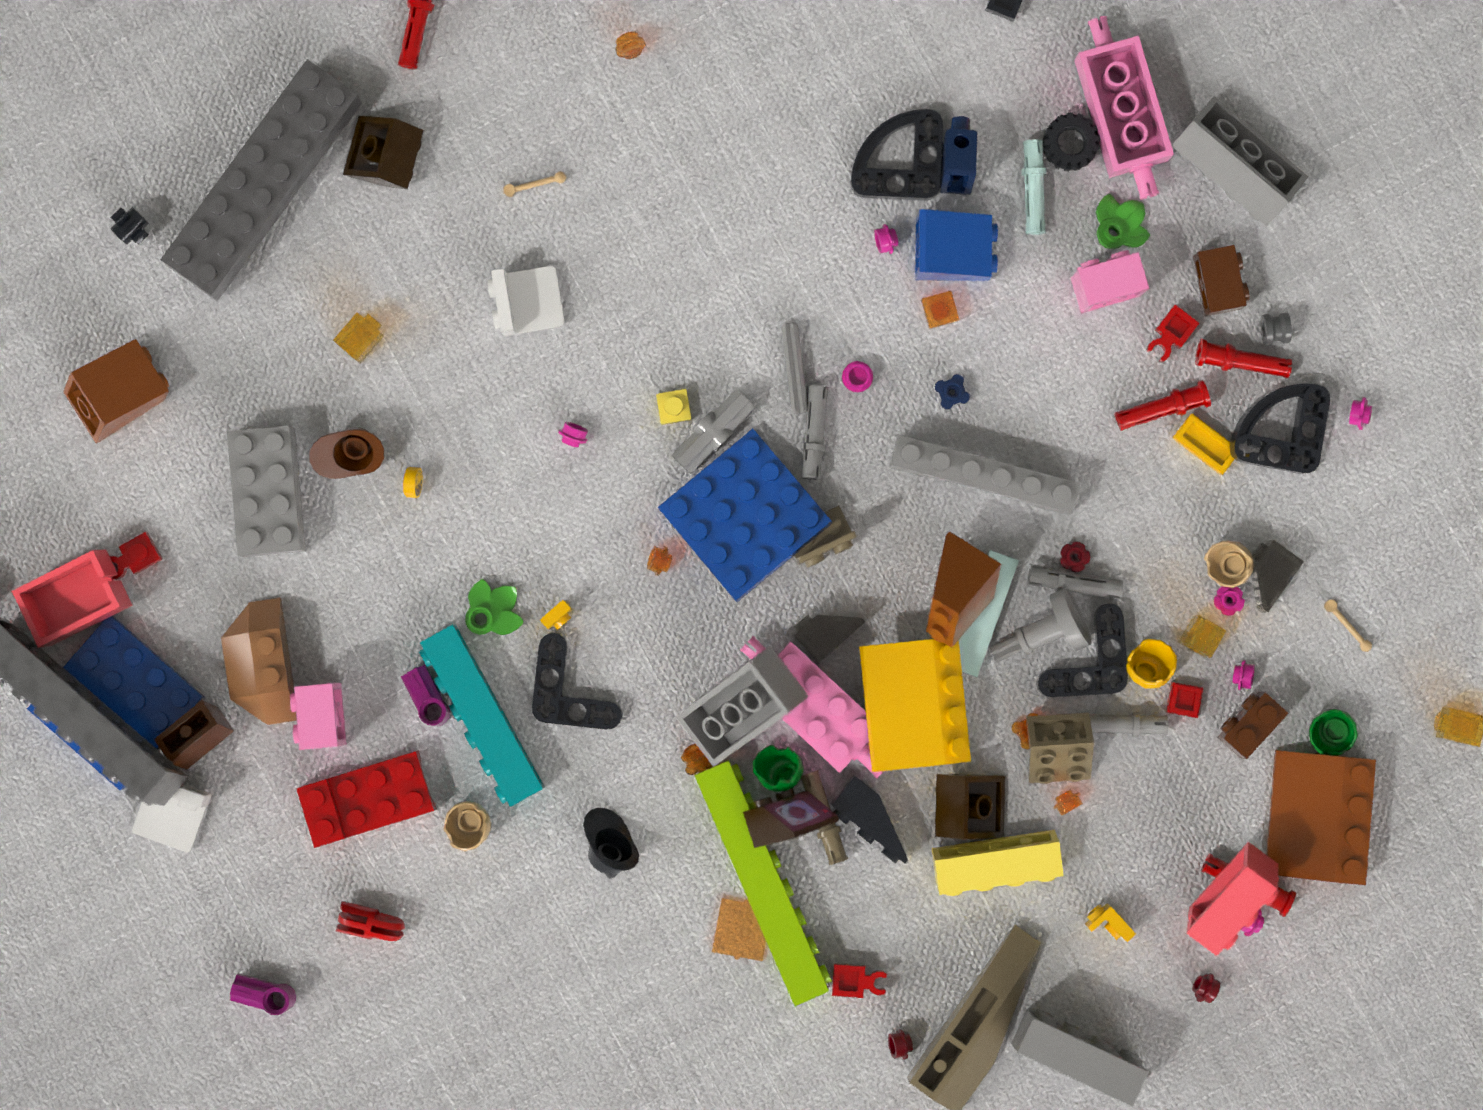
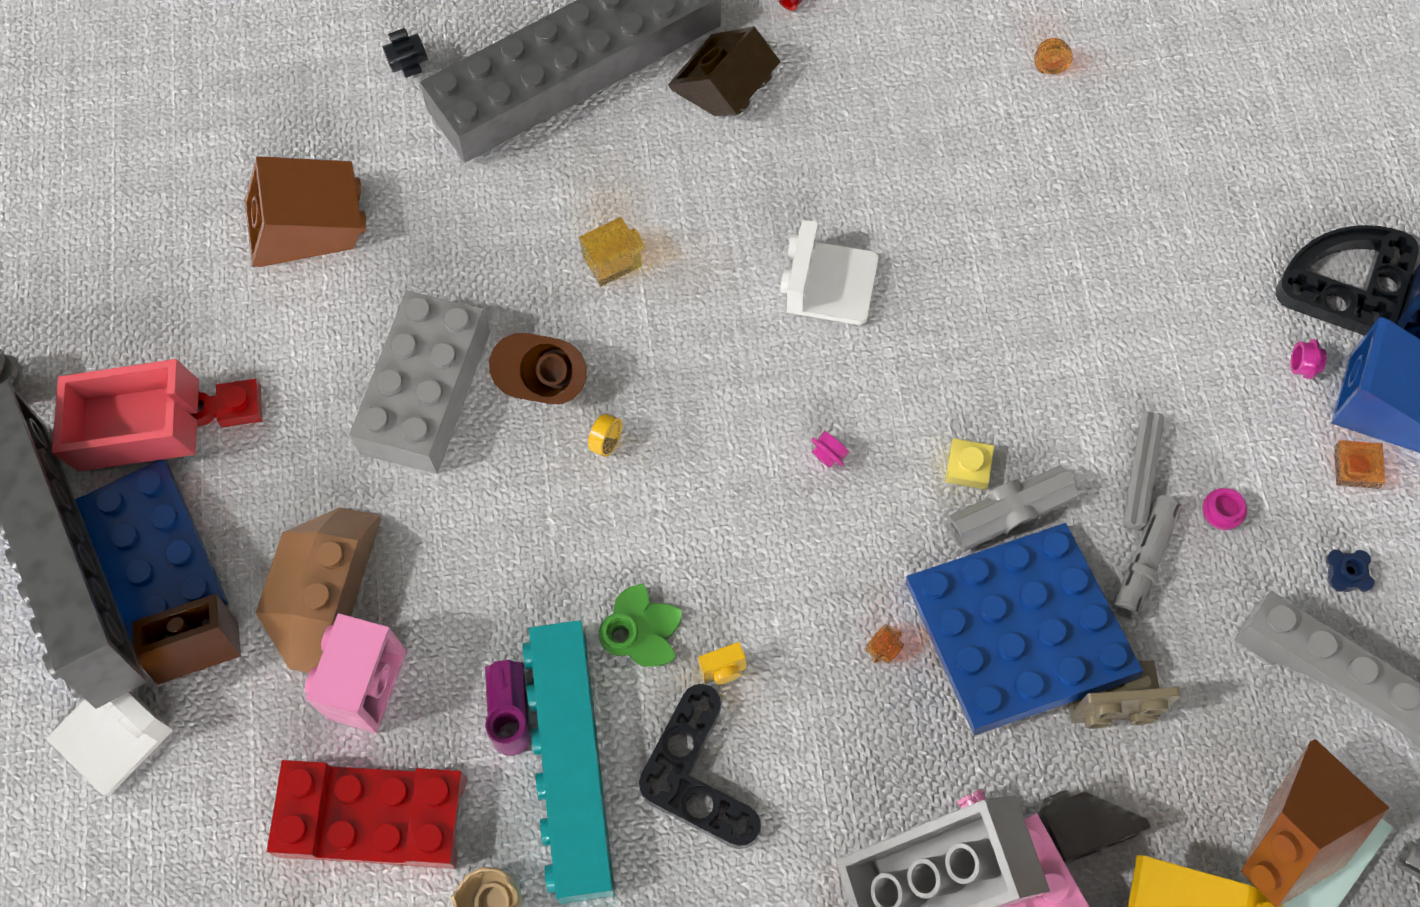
camera: 25 degrees right, 20 degrees down
(510, 190) = (855, 162): tan hinge -> none

